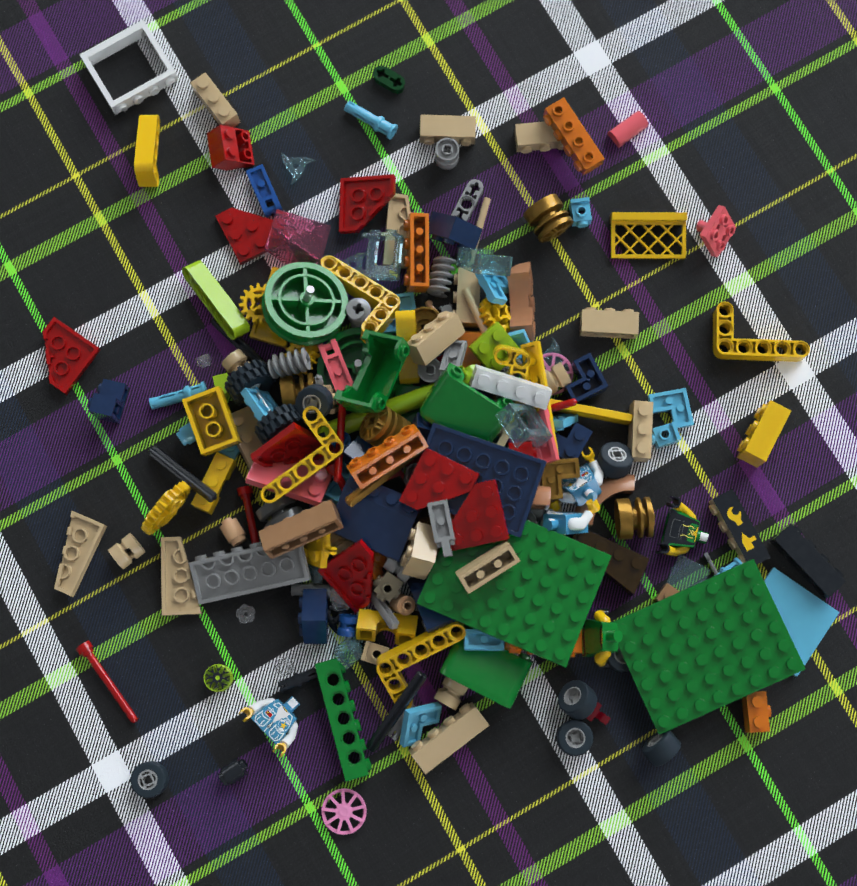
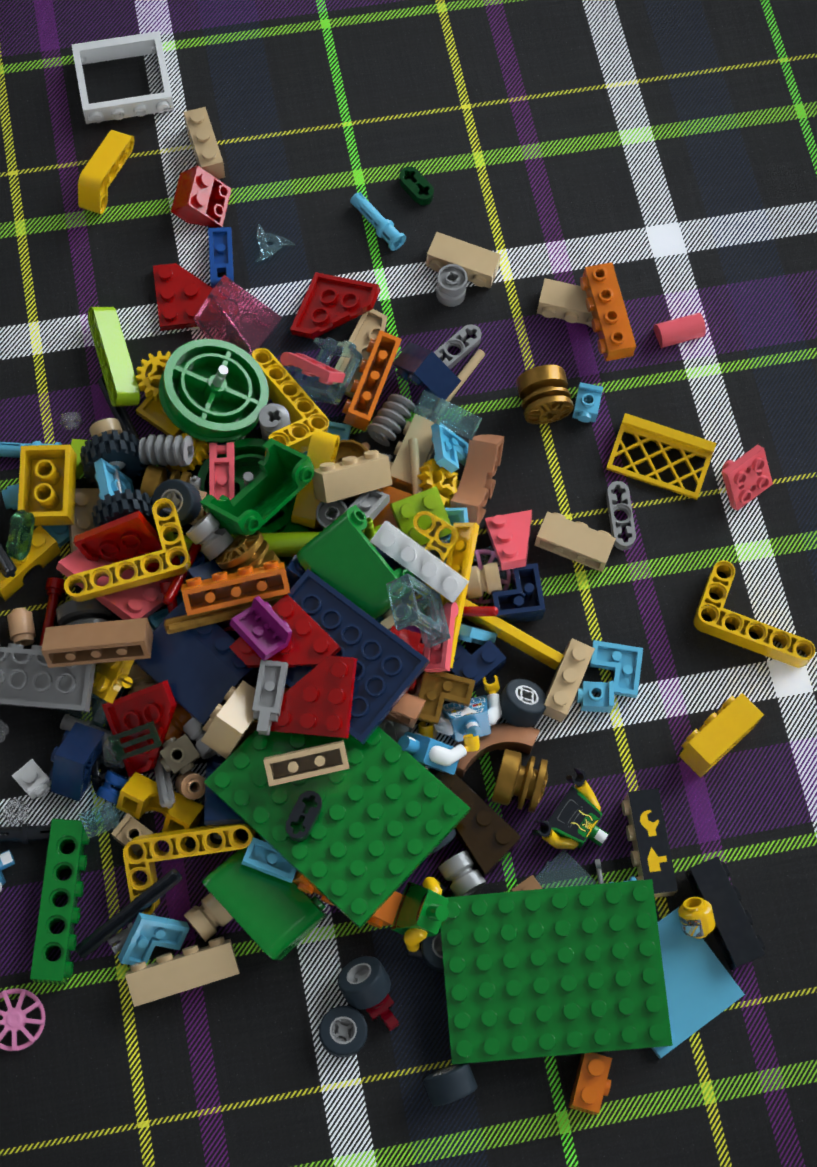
camera: 15 degrees right, 10 degrees down
(209, 467) = (20, 534): none -> clear green plate
(287, 639) = (32, 780): none -> white bracket
(342, 596) = (118, 746): none -> clear green tile
(348, 420) = (209, 536): none -> light grey wheel
(370, 258) = (312, 367): none -> coral plate
(420, 481) = (262, 629): none -> magenta bracket
(503, 605) = (309, 818): none -> black beam
(562, 339) = (510, 538): none -> coral wing
(616, 599) = (460, 872): none -> light grey wheel
(633, 277) = (624, 505): none -> light grey beam
(790, 572) = (696, 917): none -> yellow head

